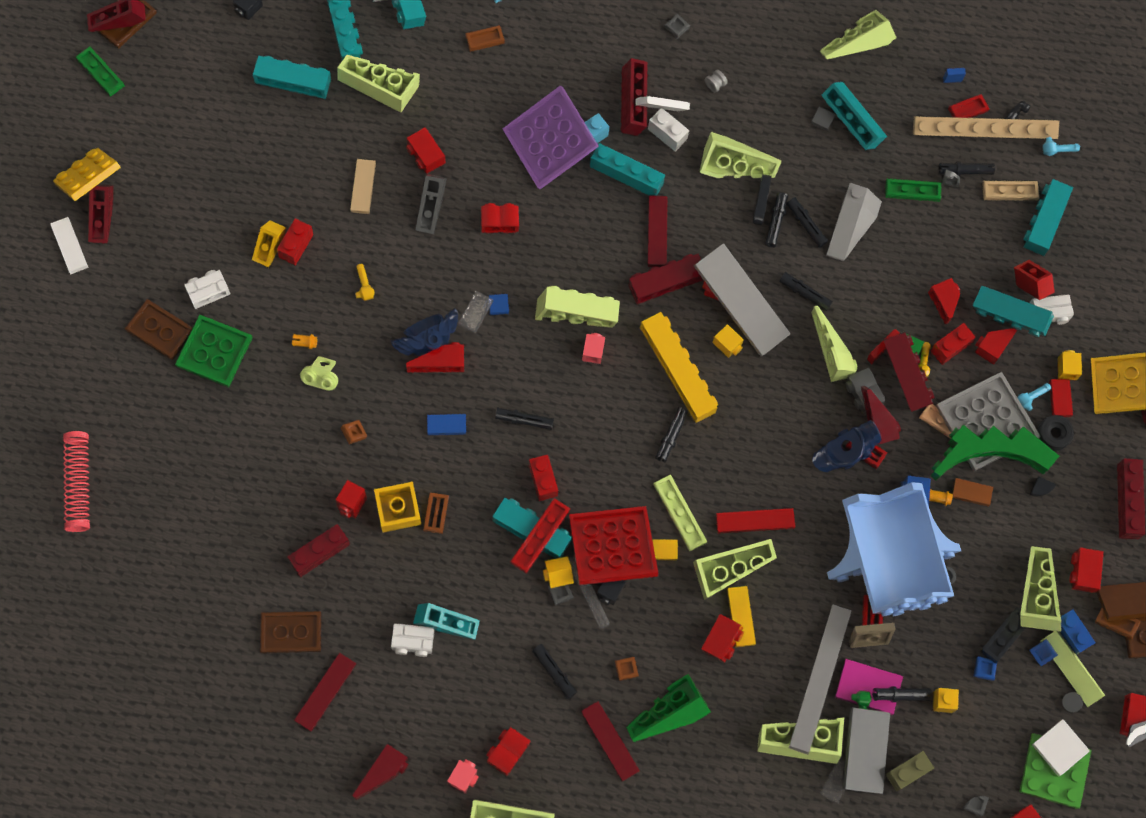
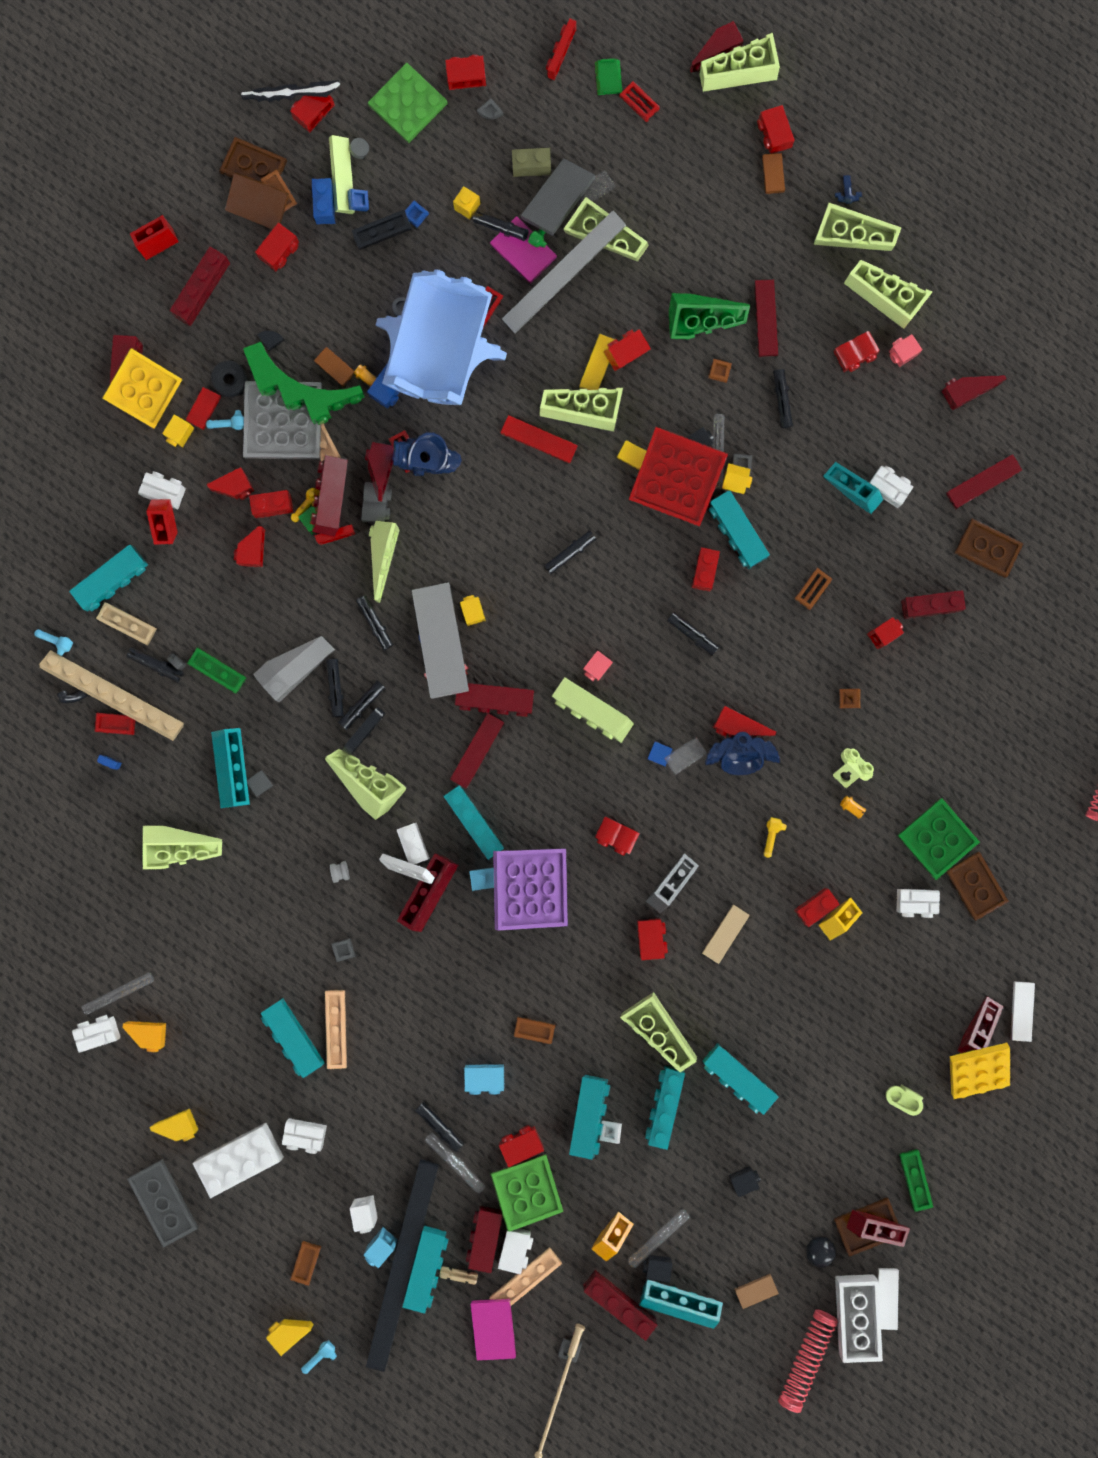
camera: 140 degrees left, 15 degrees up
(141, 127) = (905, 1099): none -> yellowish green bracket
(397, 507) = (847, 607): yellow brick -> none
(446, 424) = (764, 664): blue tile -> none
(540, 535) = (738, 515): red tile -> none
(678, 367) = (531, 610): yellow brick -> none
(680, 513) = (600, 480): yellowish green tile -> none
(872, 635) = (498, 284): dark tan tile -> none
(1013, 310) = (200, 502): teal brick -> none
(1040, 596) = (334, 241): yellowish green wedge -> none
(1060, 747) = (394, 113): white tile -> none

